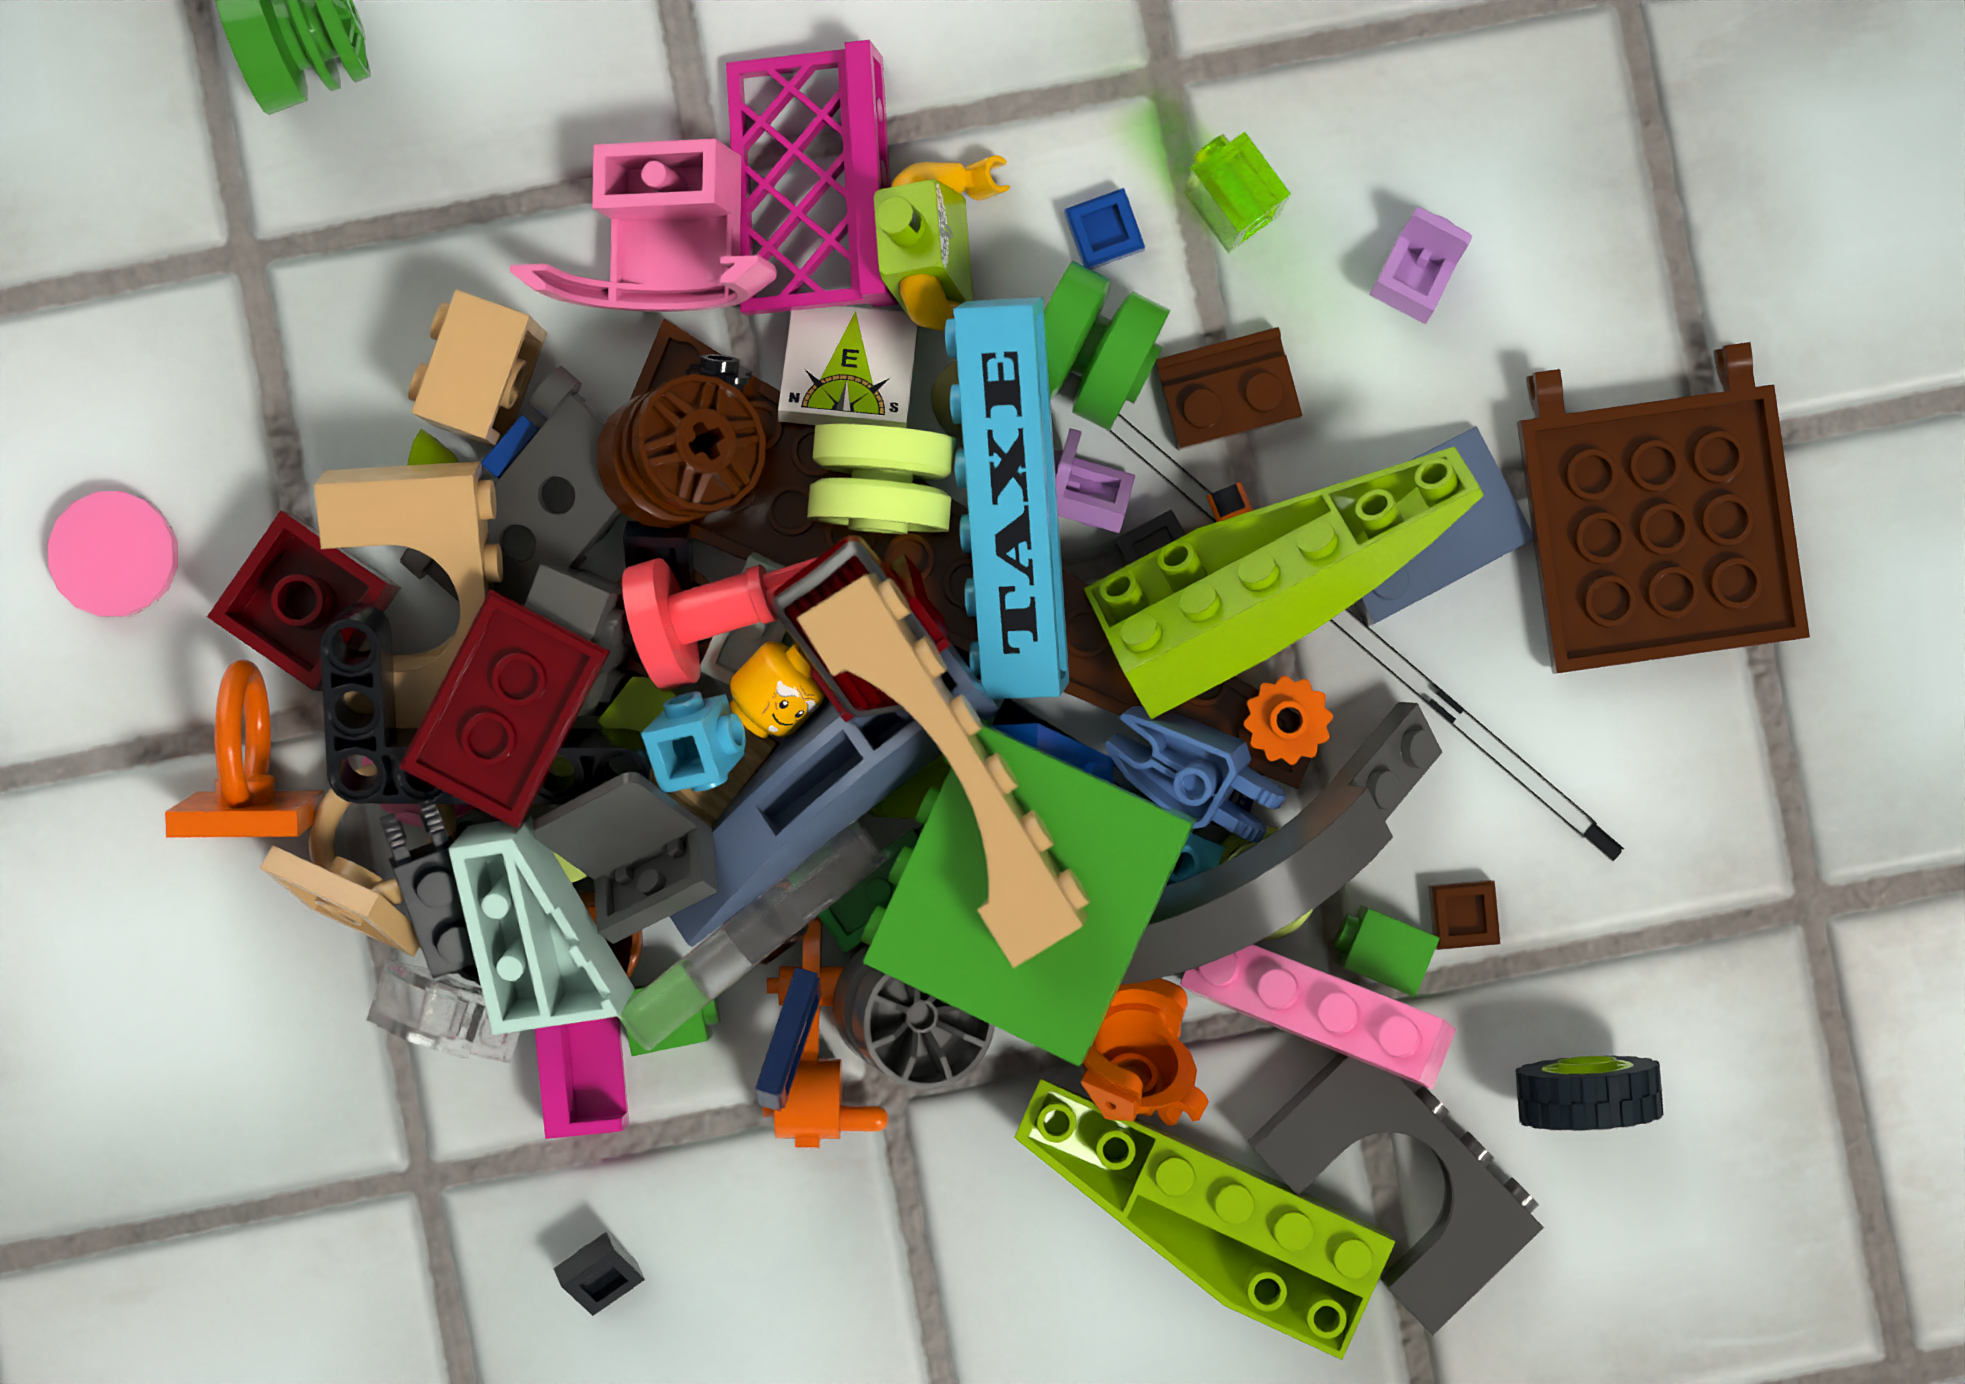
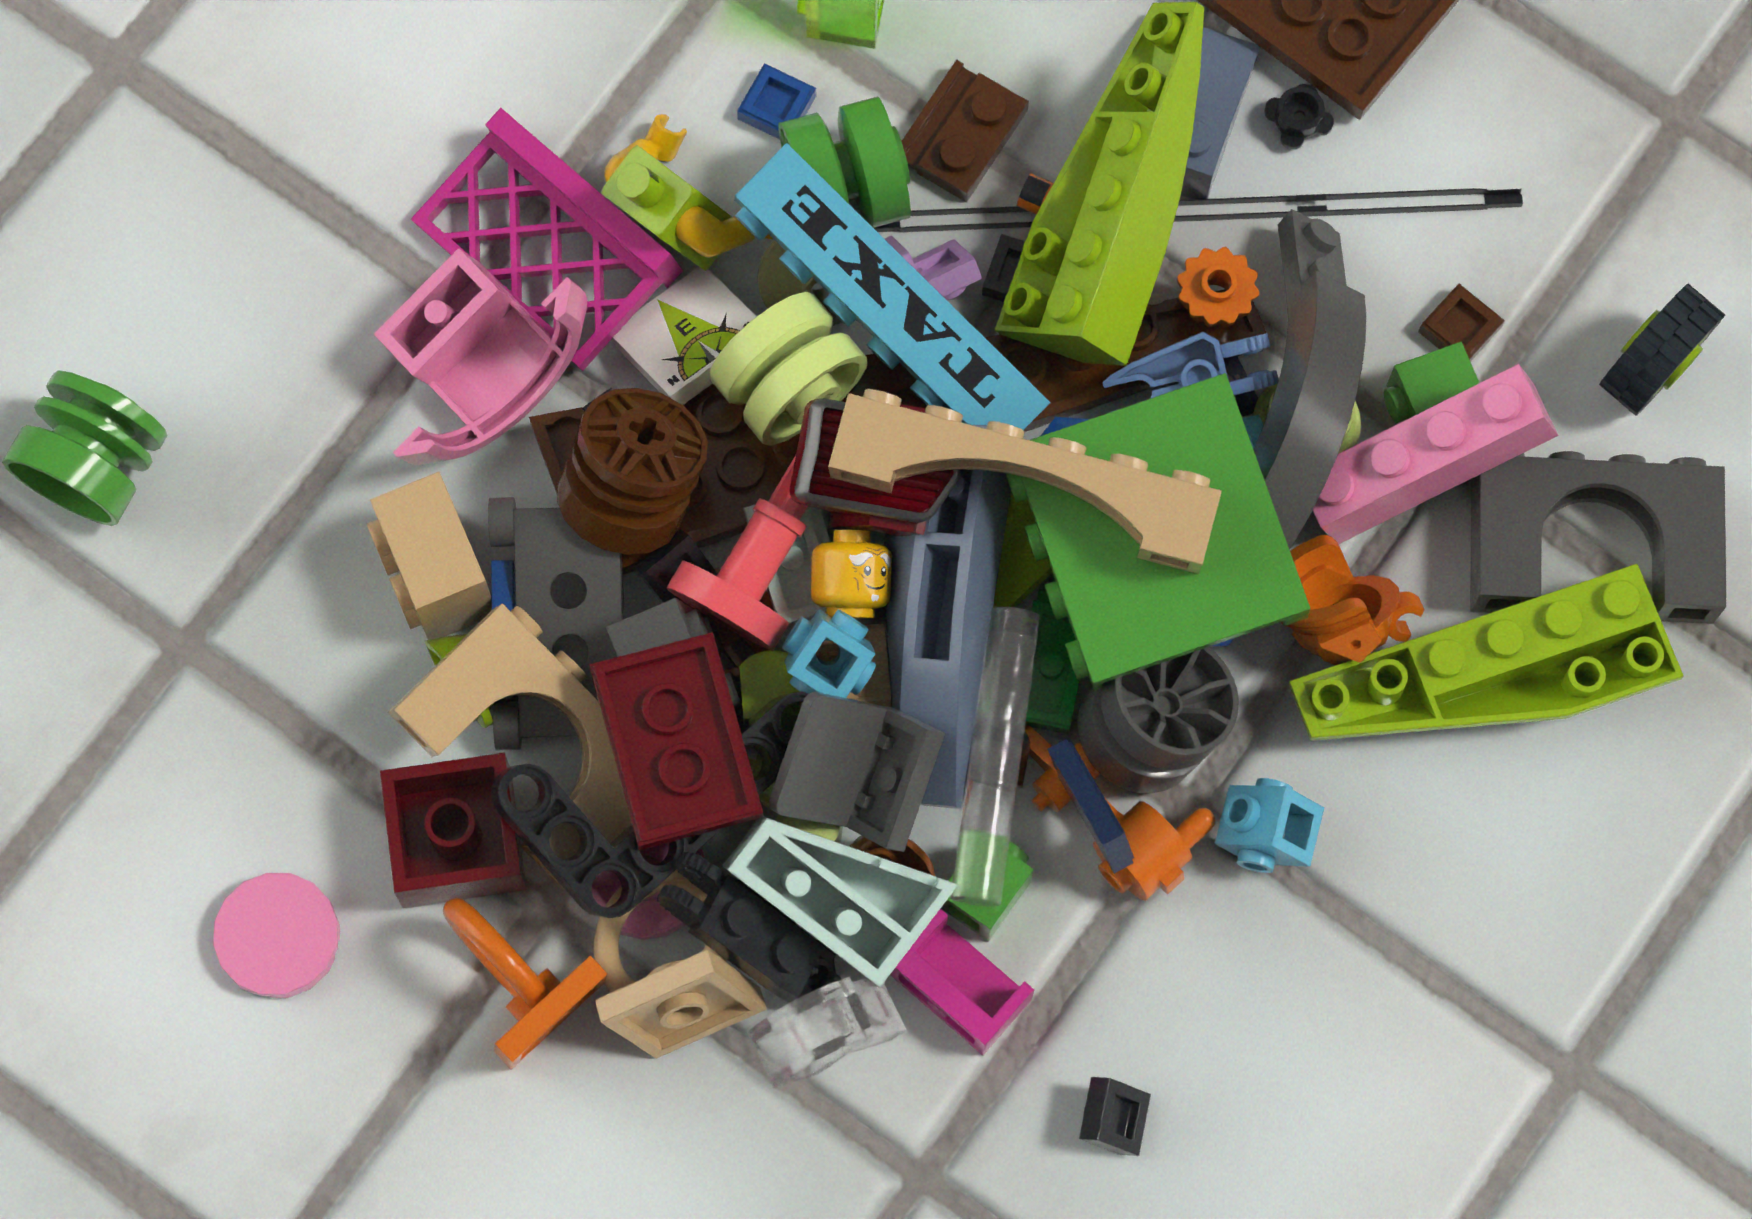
camera: 45 degrees left, 15 degrees down
(919, 1170) = (1258, 819): none -> medium azure brick
(1523, 618) = (1306, 101): none -> black plate

